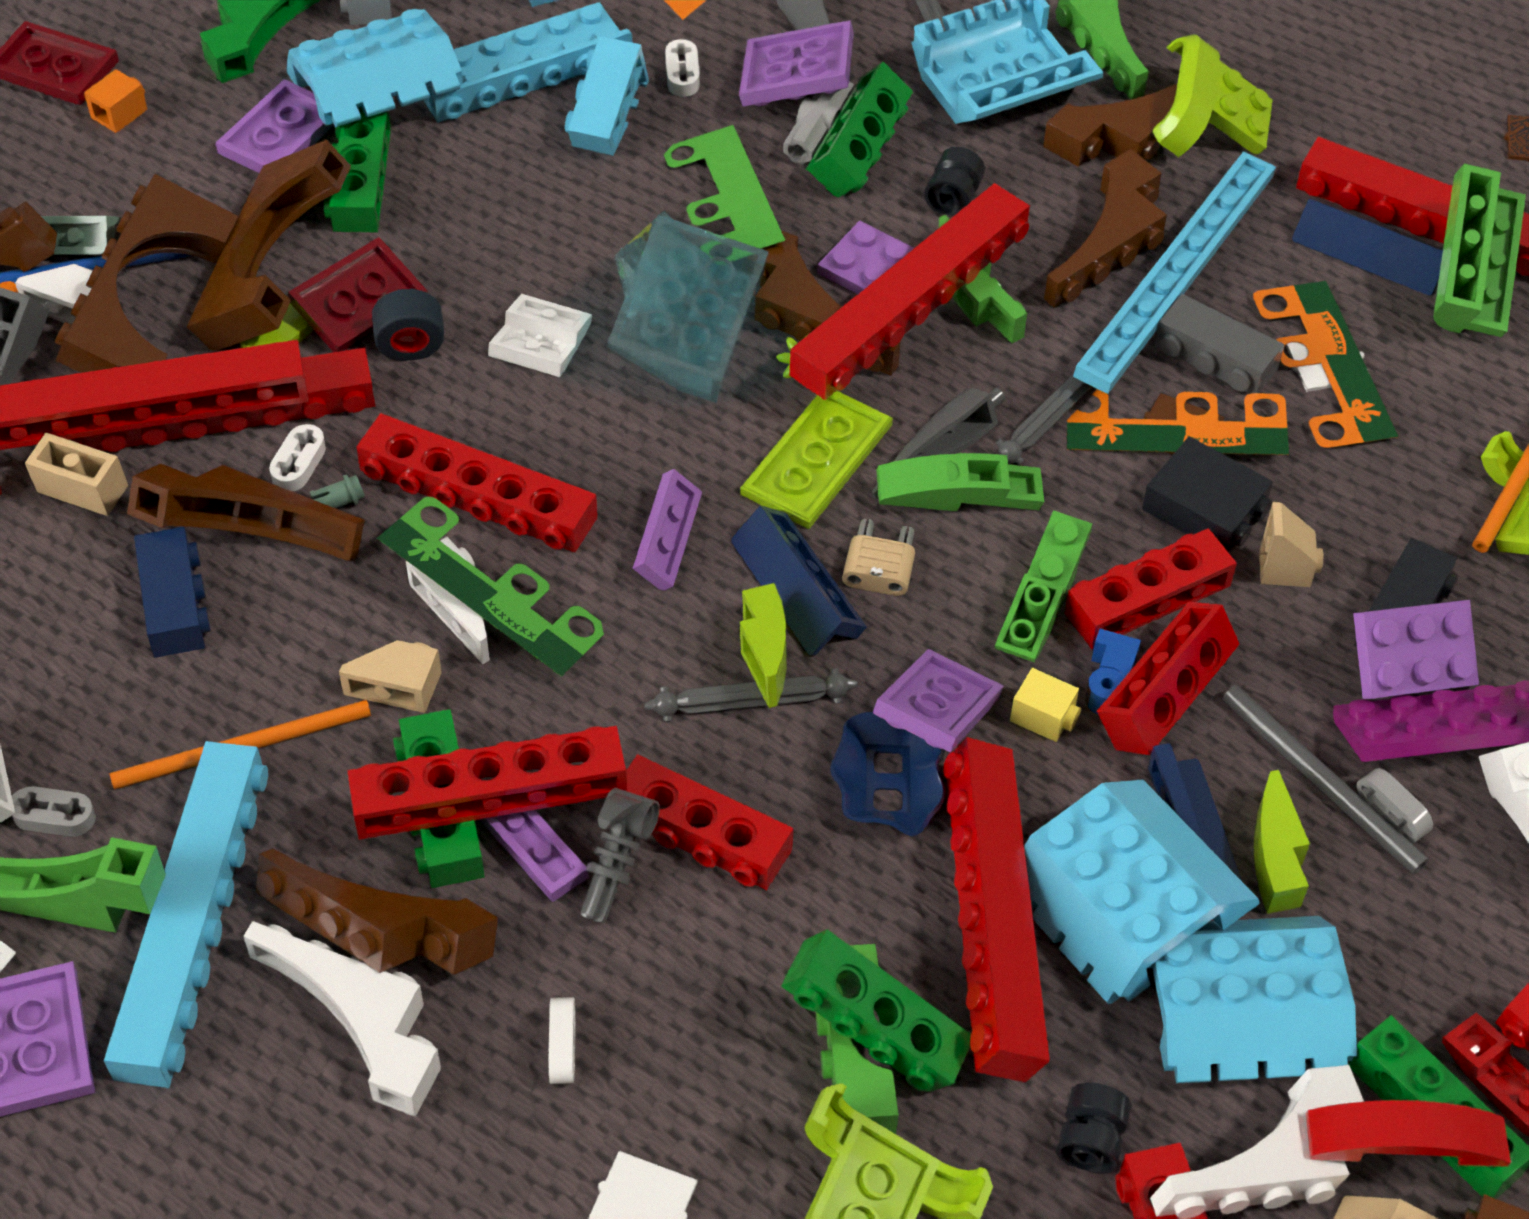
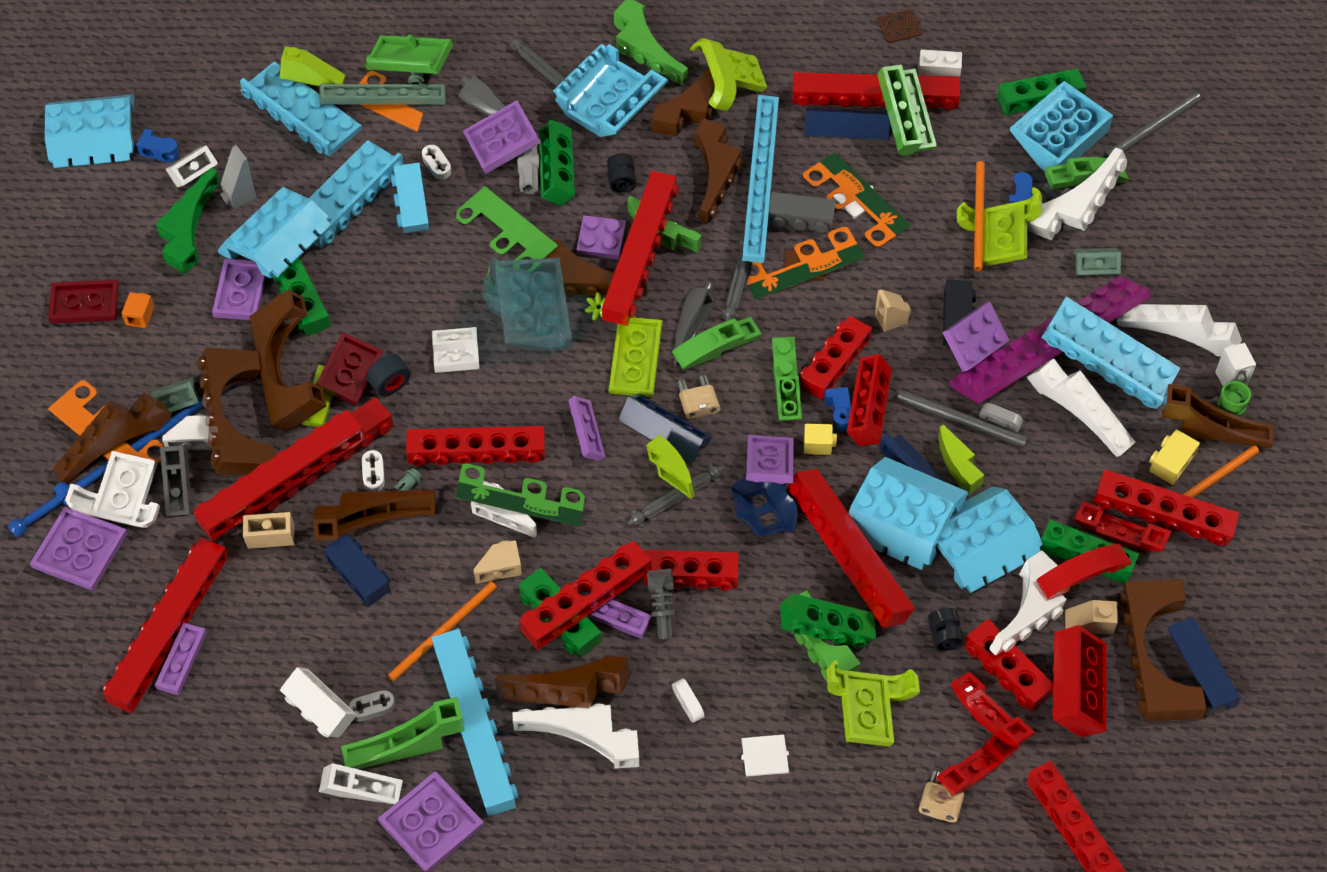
camera: 25 degrees left, 5 degrees up
(1209, 491) = (838, 296): black brick -> none

